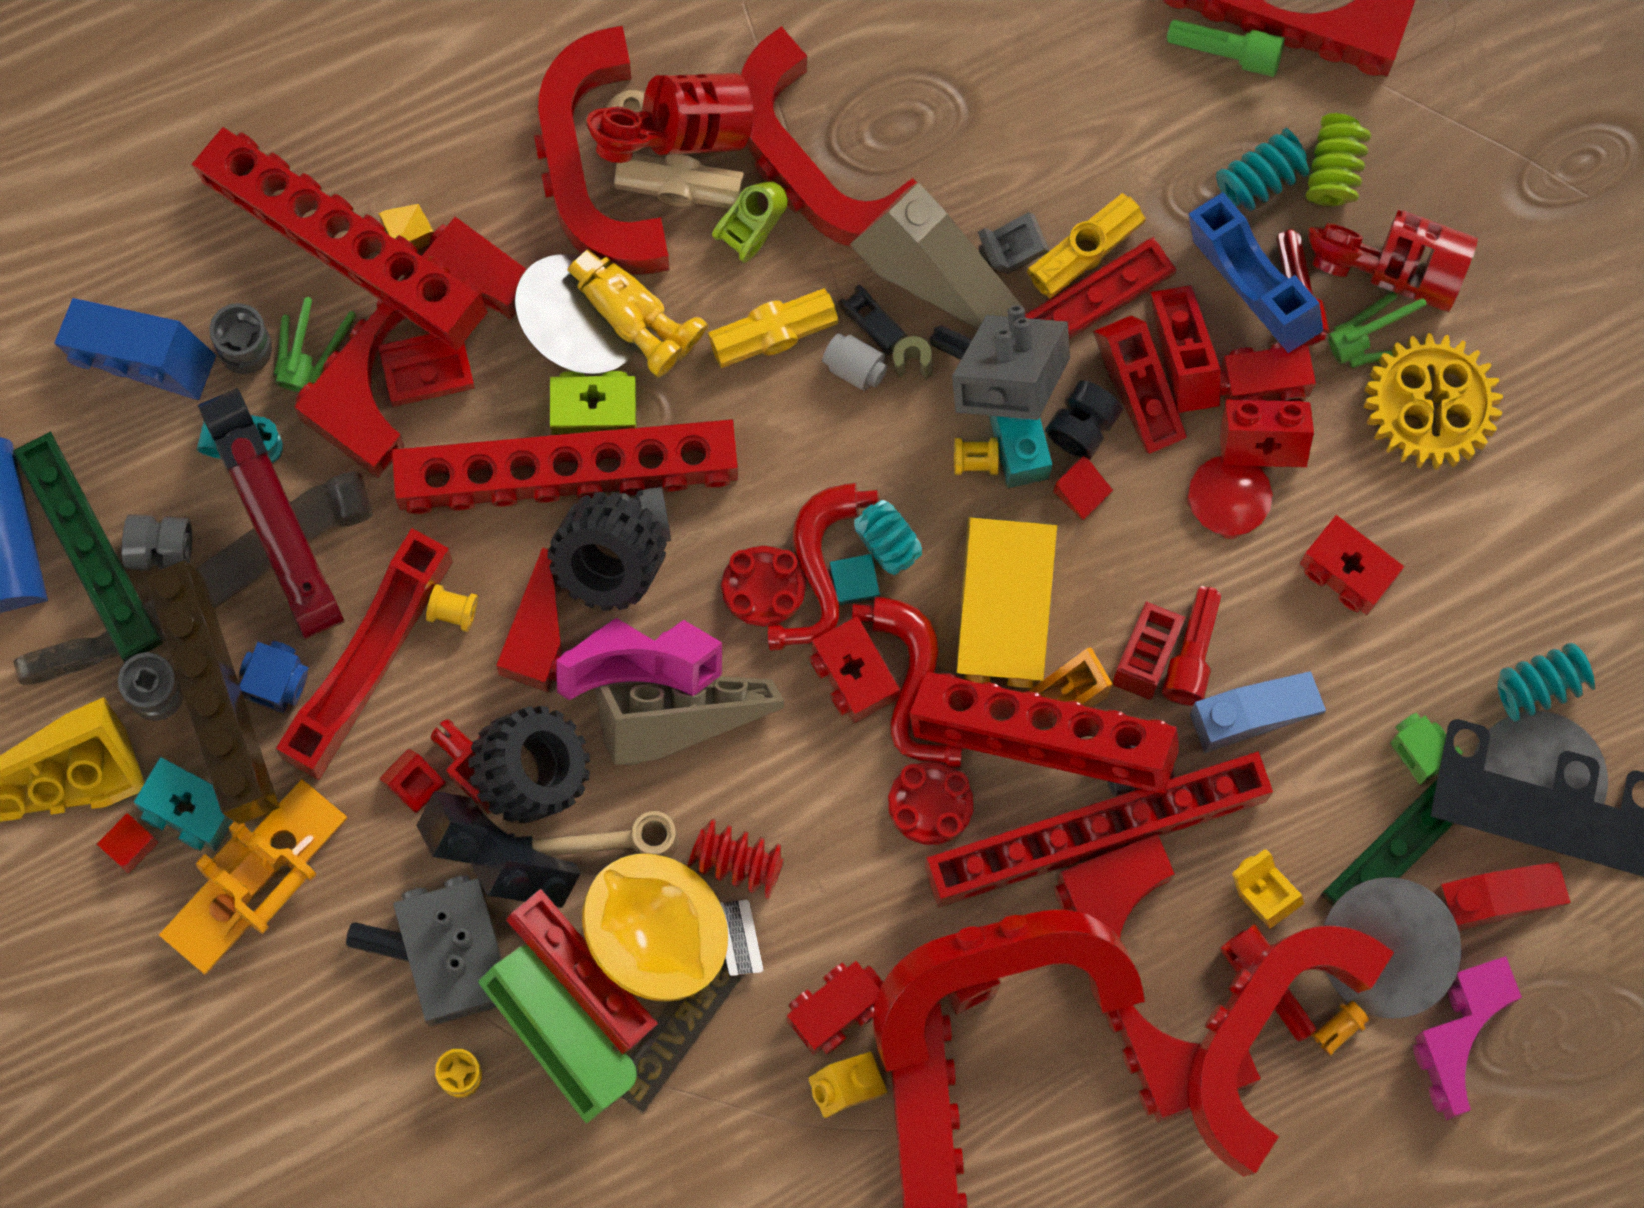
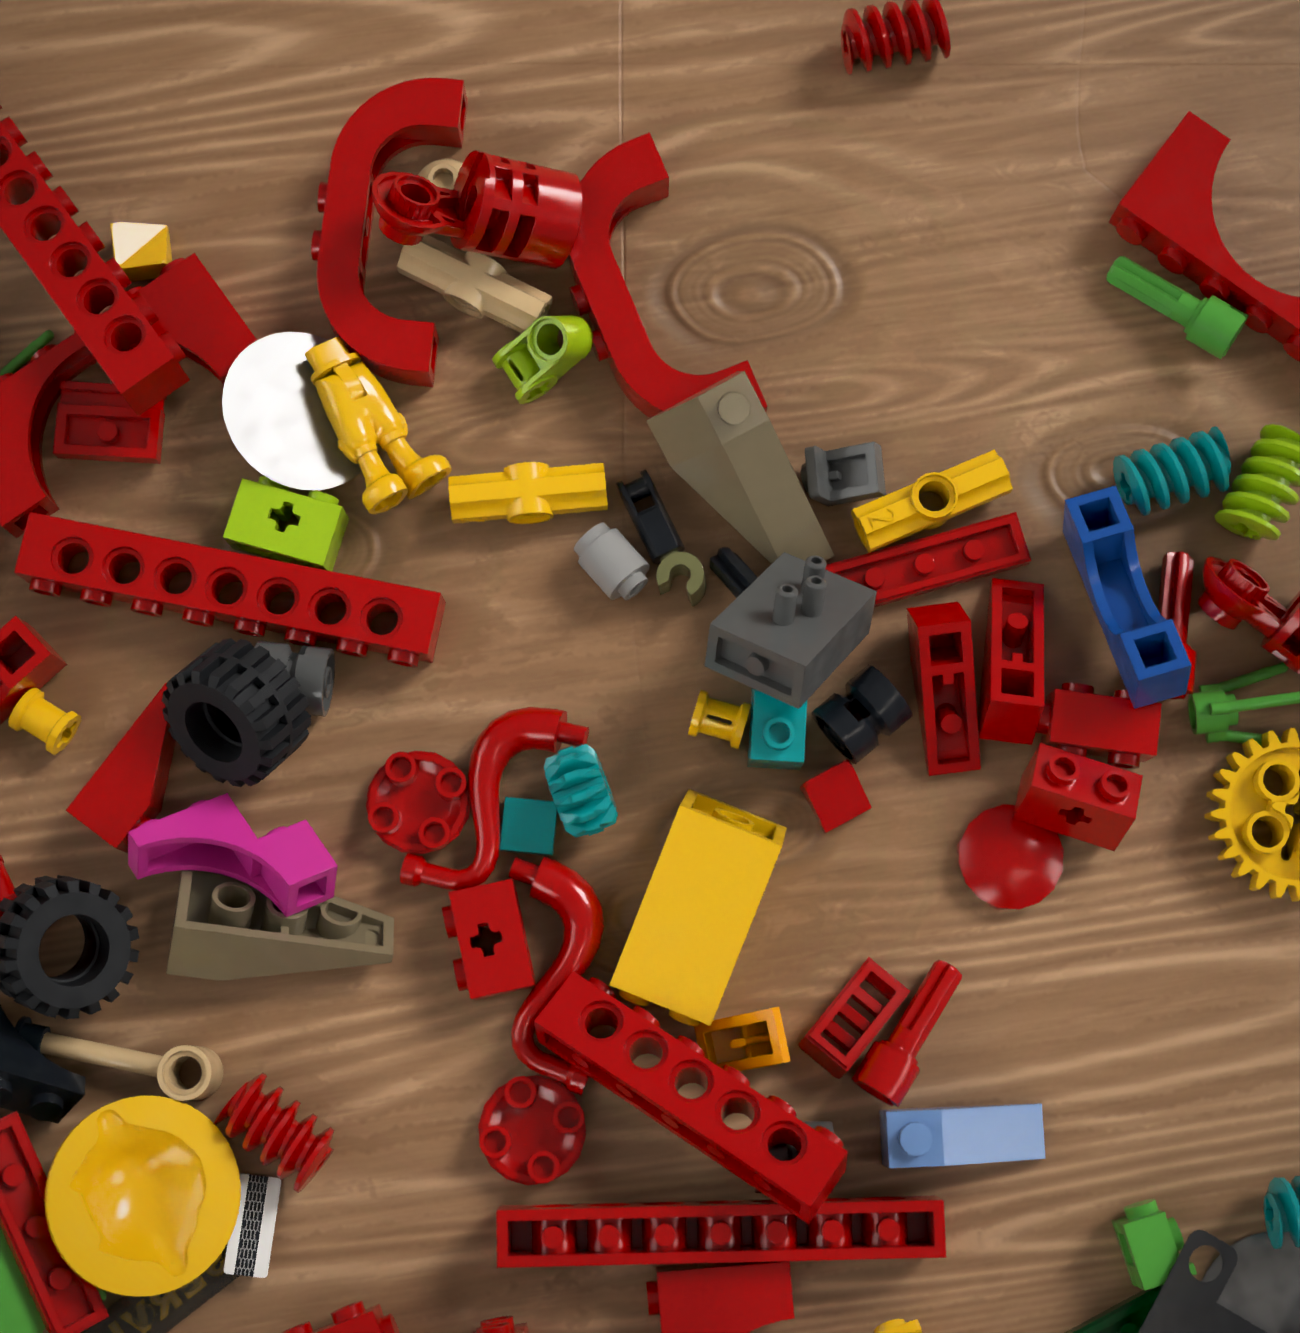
camera: 20 degrees right, 5 degrees up
(1343, 545) = (1158, 1003): red brick -> none

